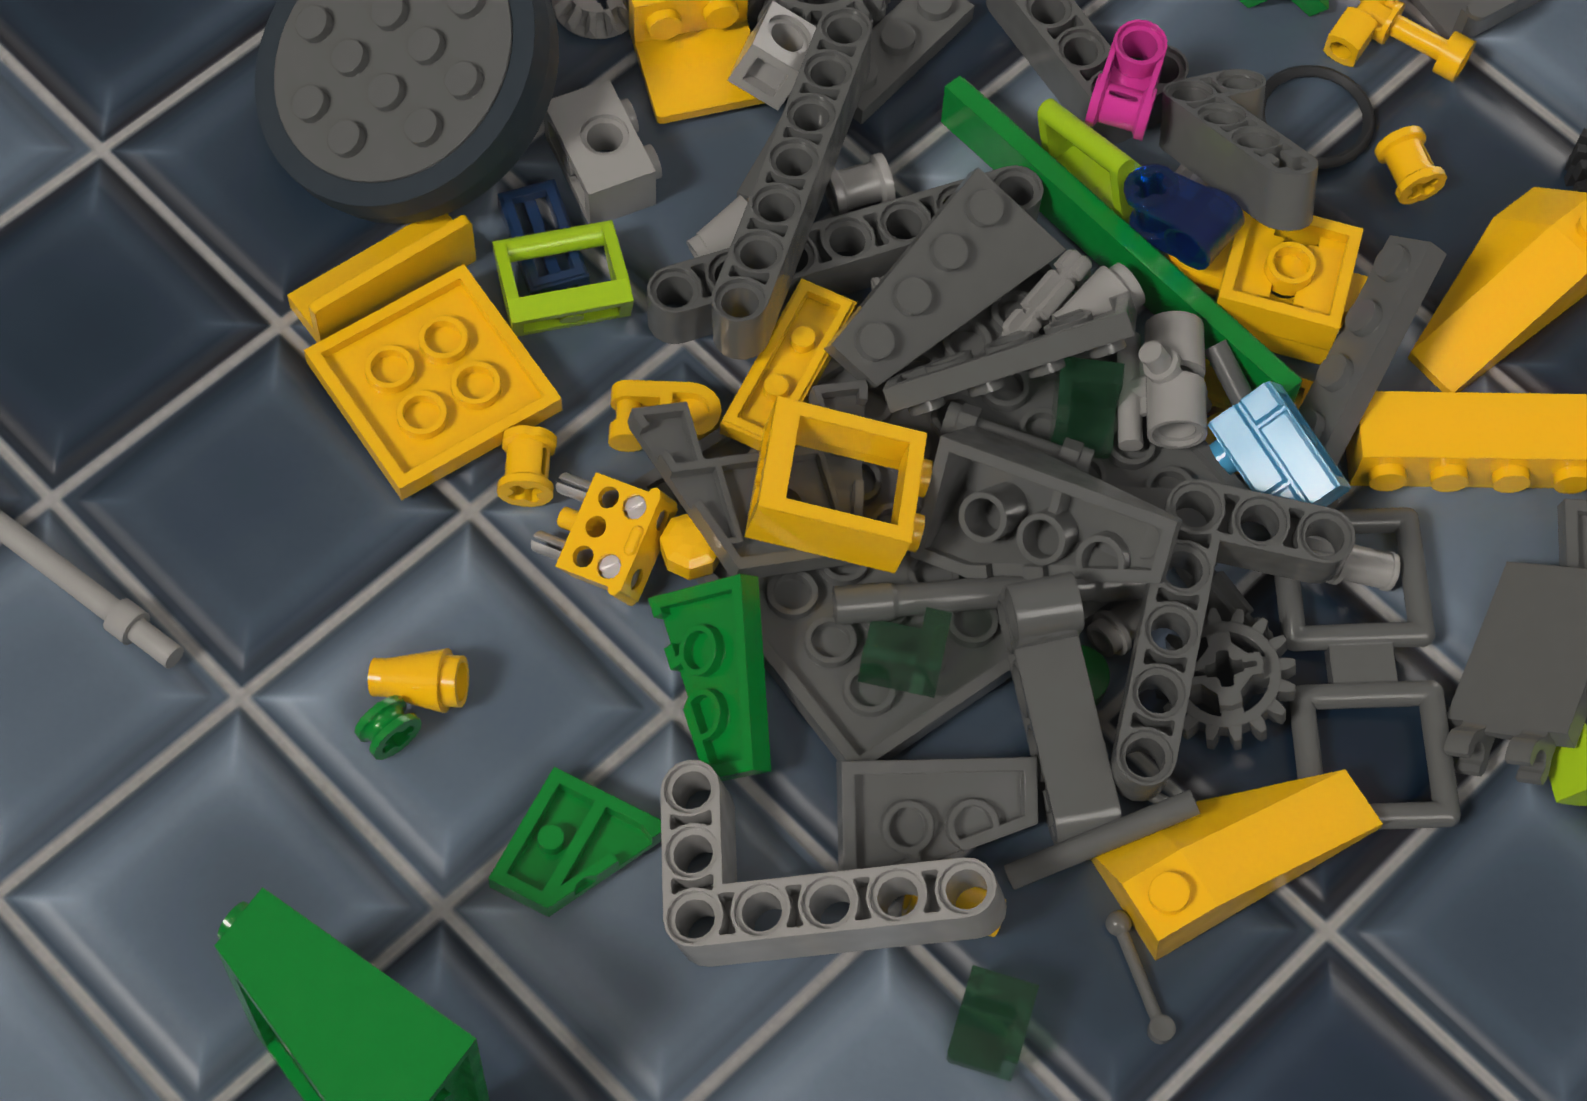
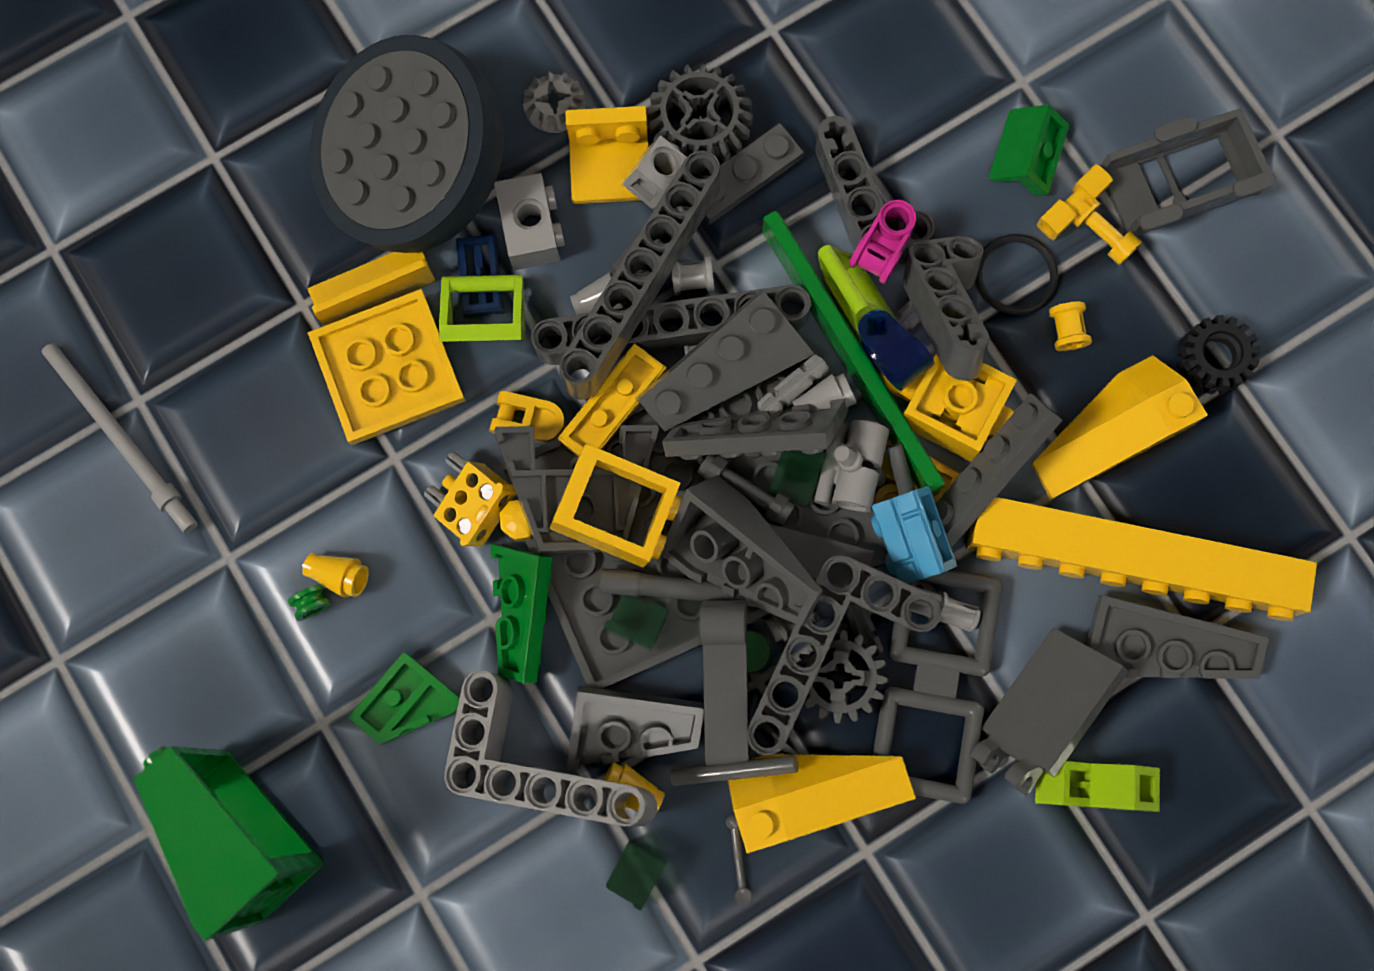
camera: 20 degrees right, 15 degrees up
(527, 466) = (432, 439): yellow bush -> none

